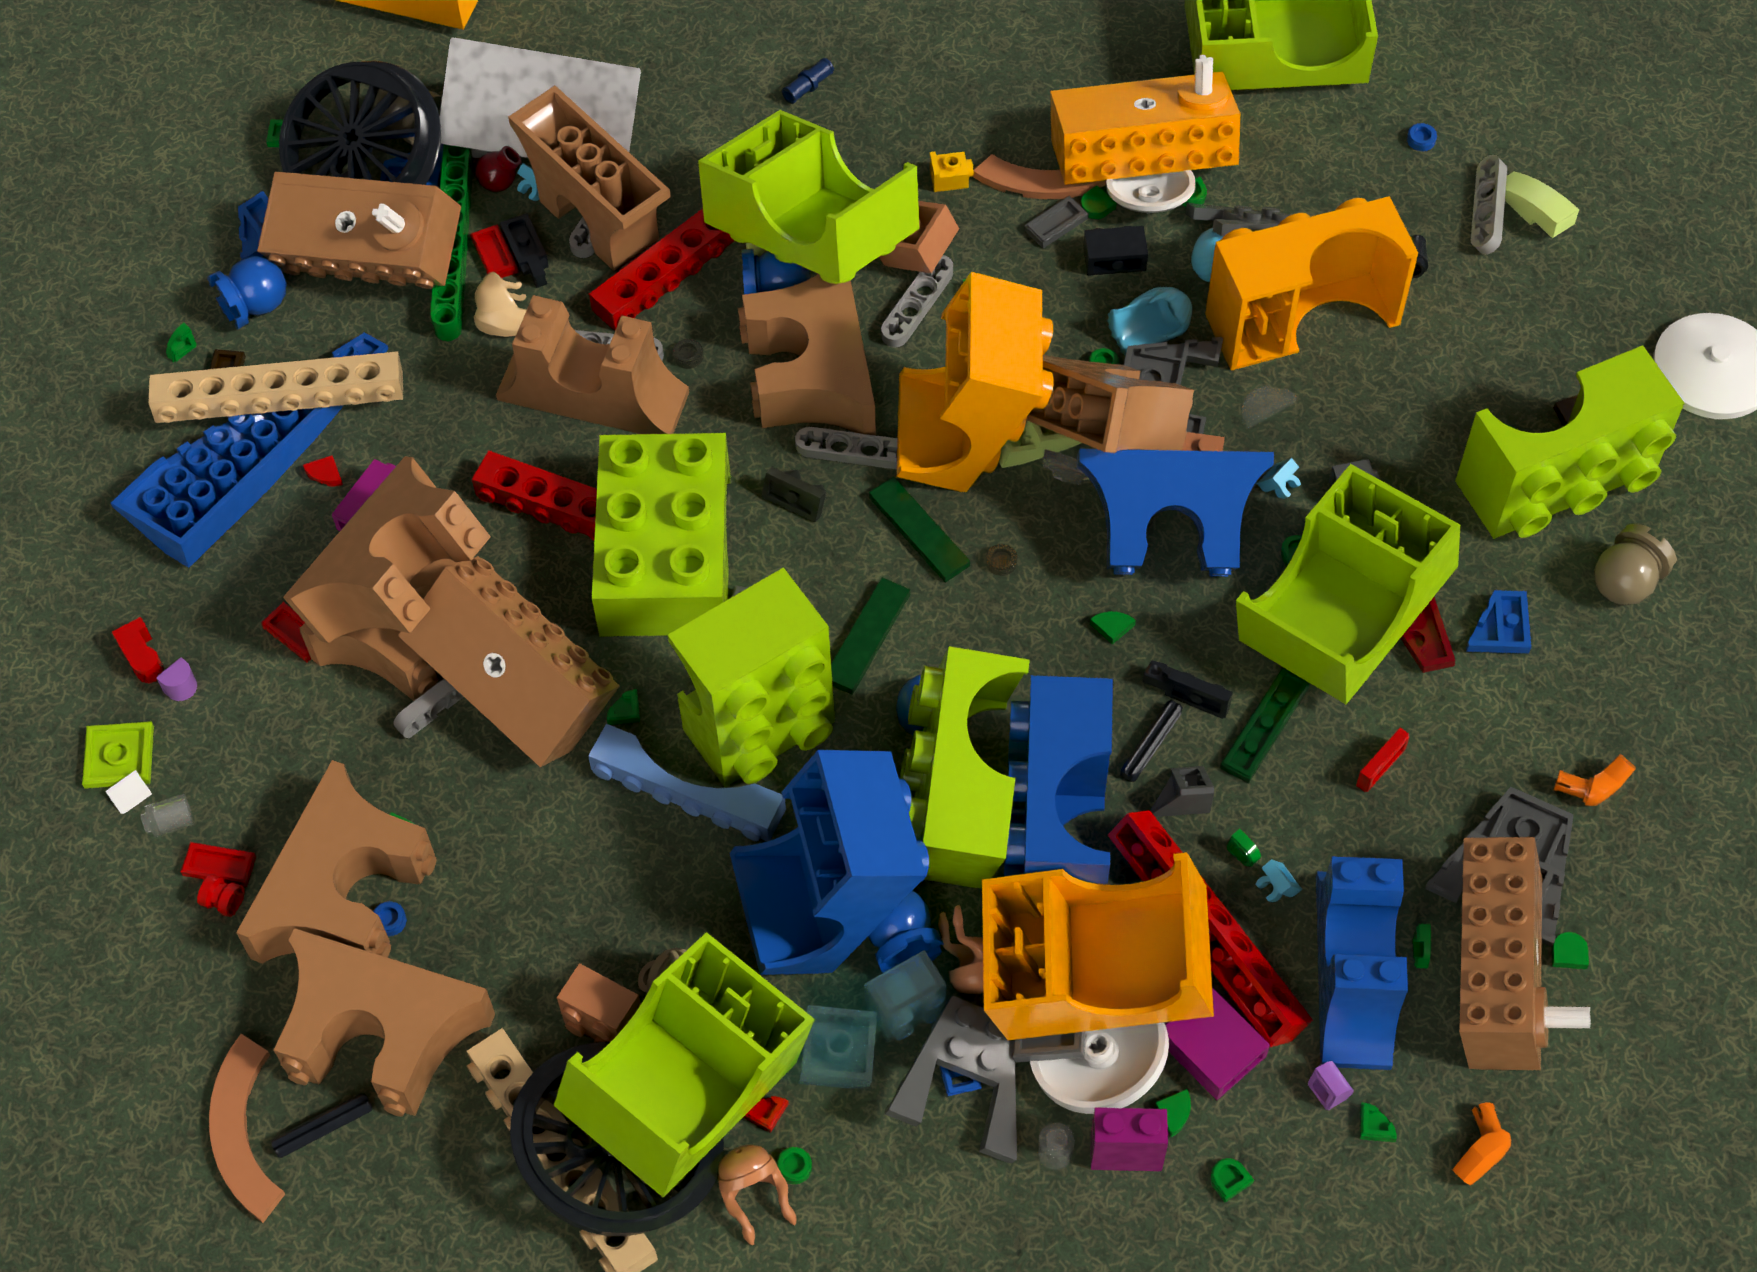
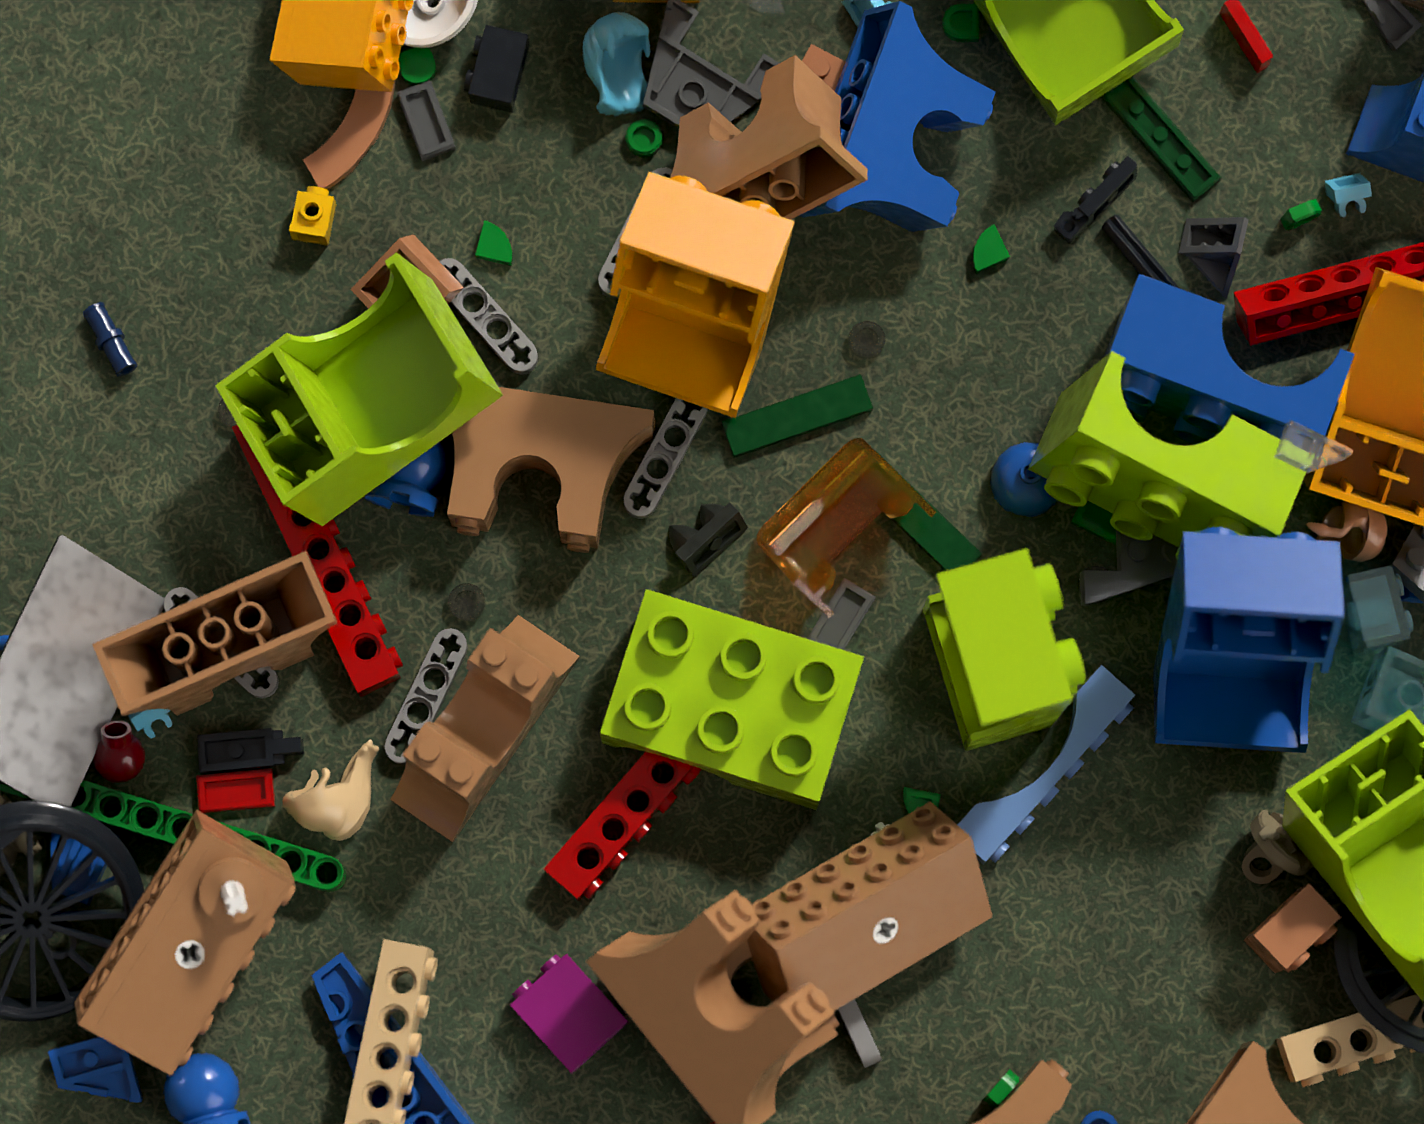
camera: 75 degrees left, 20 degrees up
(324, 471) = (490, 1070): red tile -> none
(834, 567) = (831, 514): none -> clear orange windscreen
(1009, 851) = (1309, 449): none -> clear tile

